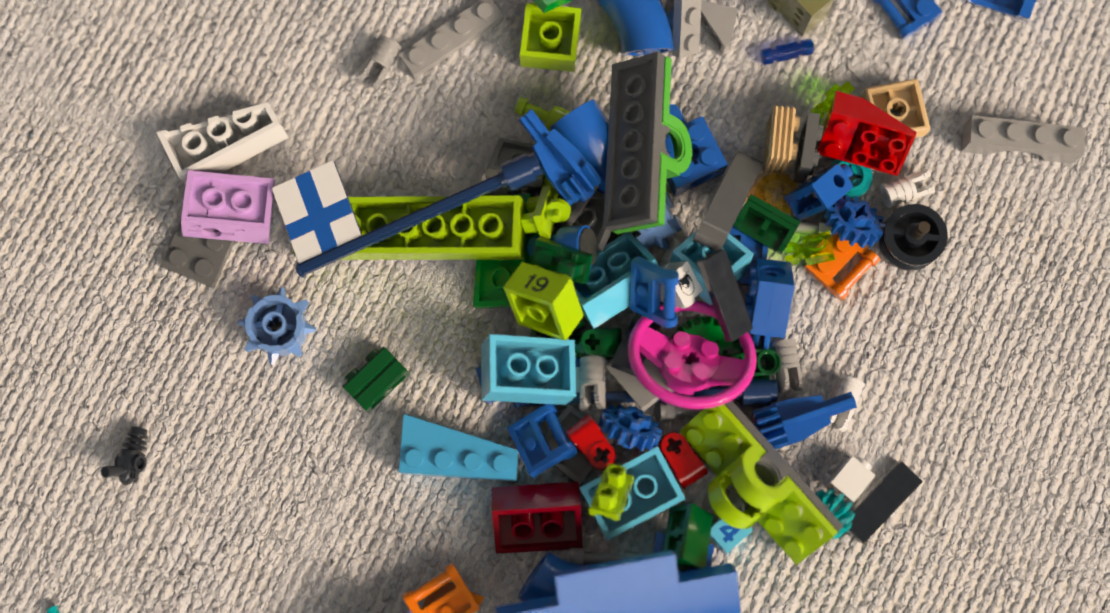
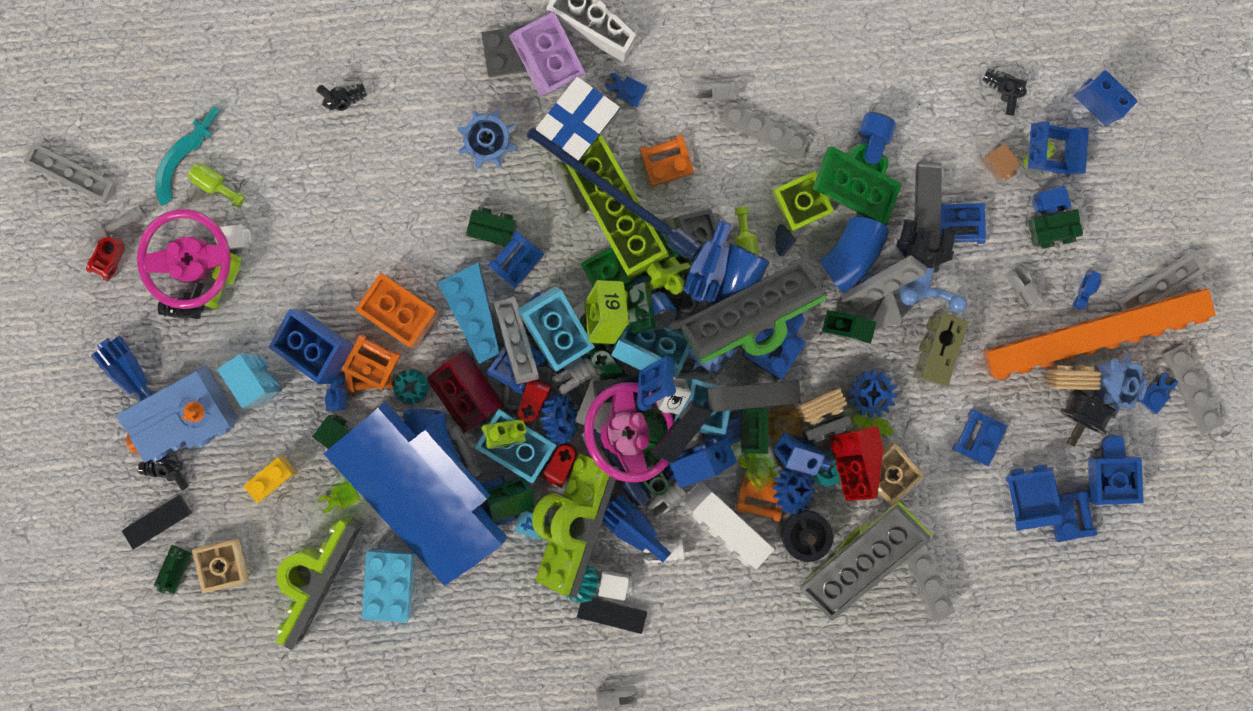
camera: 60 degrees right, 10 degrees up
(322, 148) = (629, 91): none -> blue plate
(363, 272) = (561, 174): none -> light grey bar
(402, 537) = (397, 311): none -> orange piece
(429, 156) = (668, 168): none -> orange plate
(432, 369) = (521, 261): none -> blue plate
(506, 584) = (421, 386): none -> teal gear
(515, 424) = (515, 340): none -> light grey plate
(579, 82) = (784, 240): none -> dark blue tile
(711, 63) = (849, 326): none -> dark green brick
(787, 51) = (893, 372): clear blue axle -> none
(807, 91) = (872, 383): none -> blue gear
(854, 313) = (728, 525): none -> white wedge
(904, 189) = (838, 510): white hinge -> none
(976, 186) = (865, 560): none -> dark grey piece
(979, 553) = (616, 697): none -> light grey hinge

